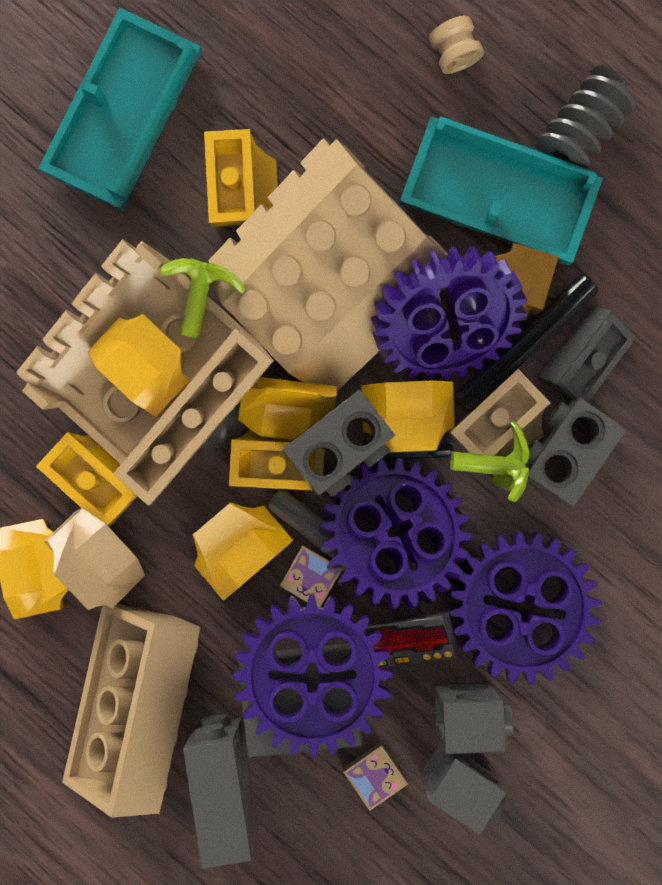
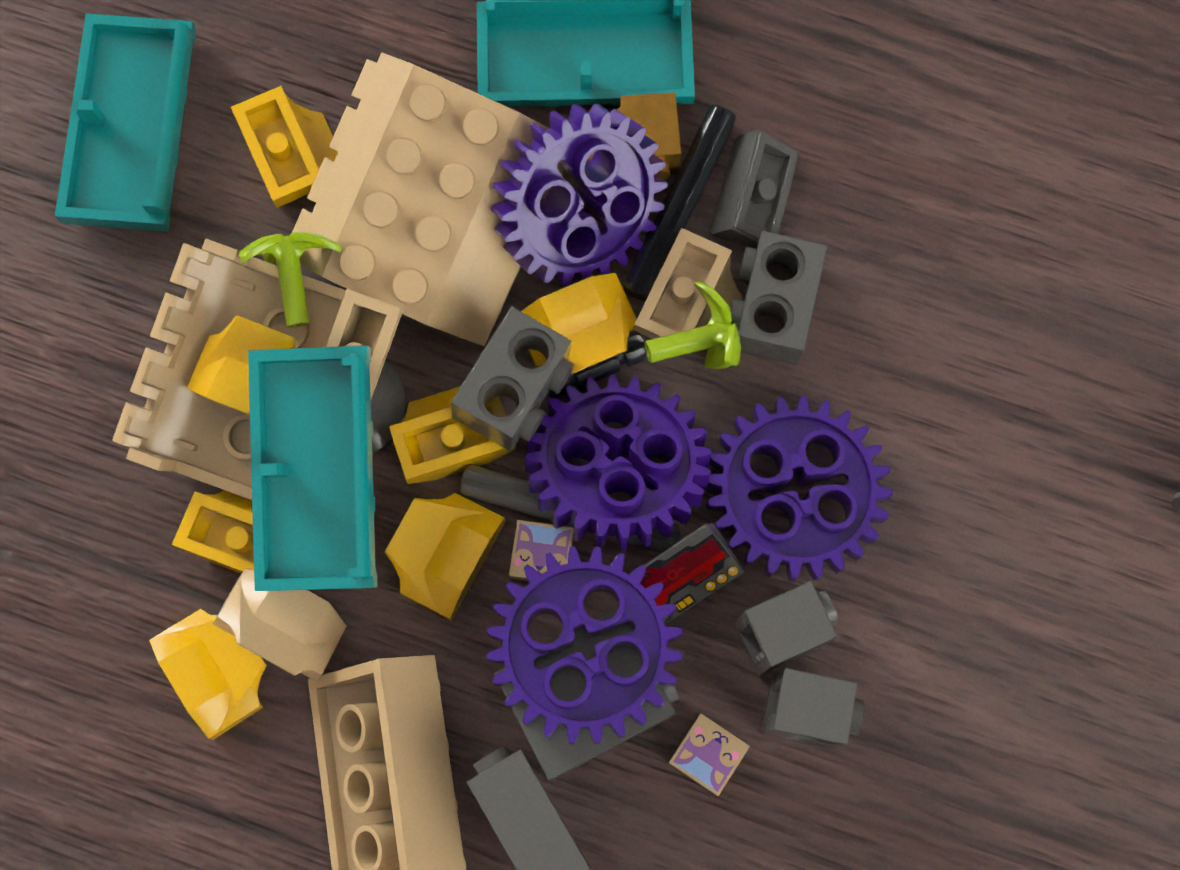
camera: 25 degrees left, 10 degrees down
(156, 460) = (312, 468): none -> teal container
(285, 407) = (432, 368): yellow slope -> none

